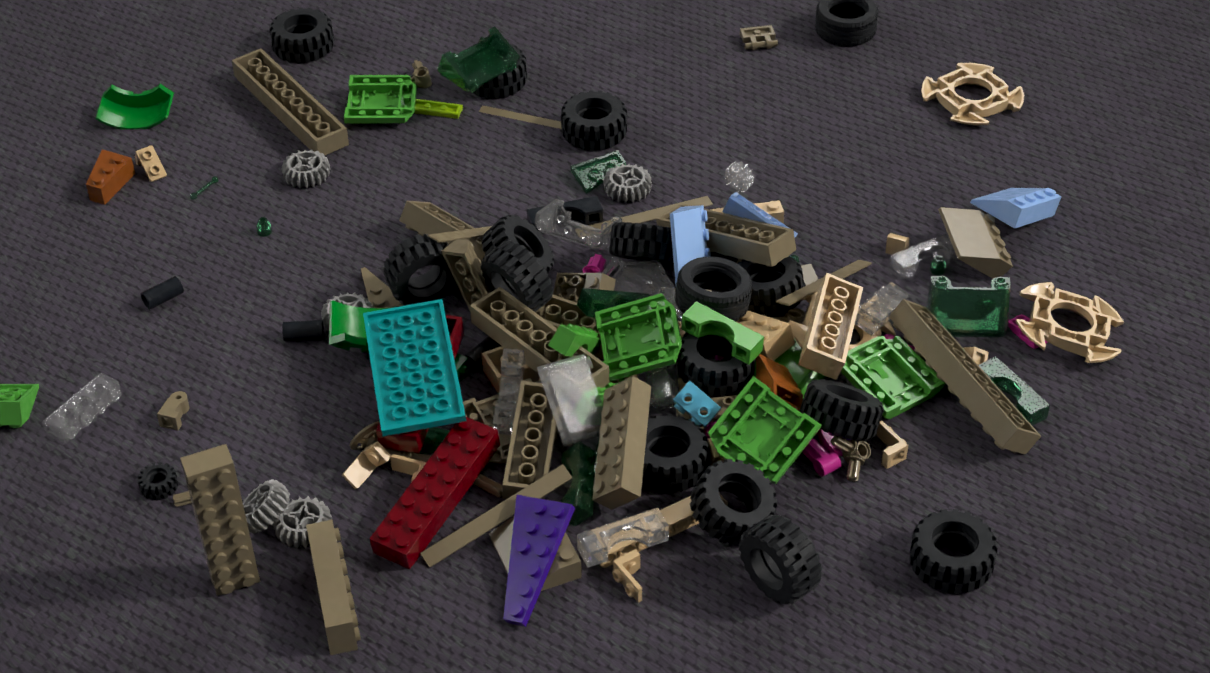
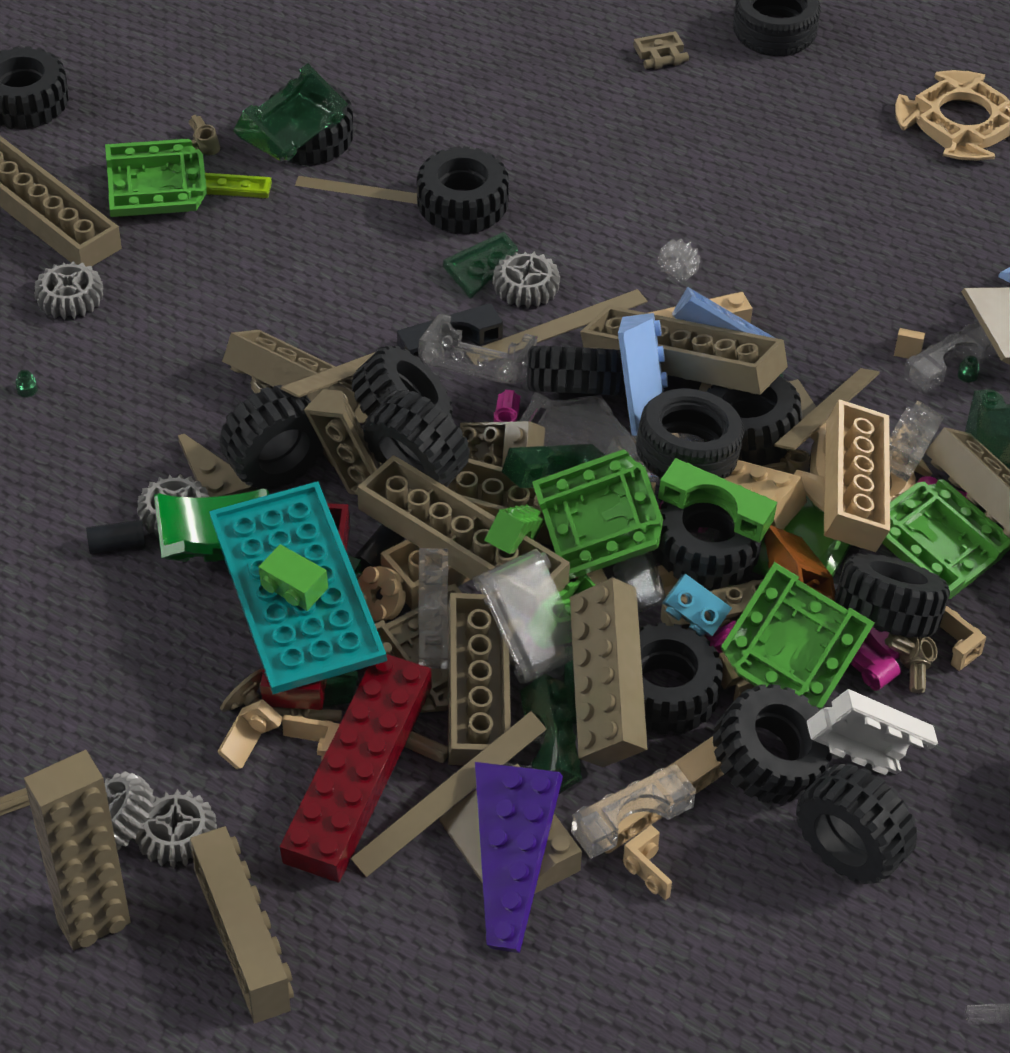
camera: 10 degrees left, 5 degrees up
(409, 359) = (293, 577): none -> bright green brick
(482, 373) = (393, 596): none -> tan plate
(803, 498) = (869, 731): none -> white piece

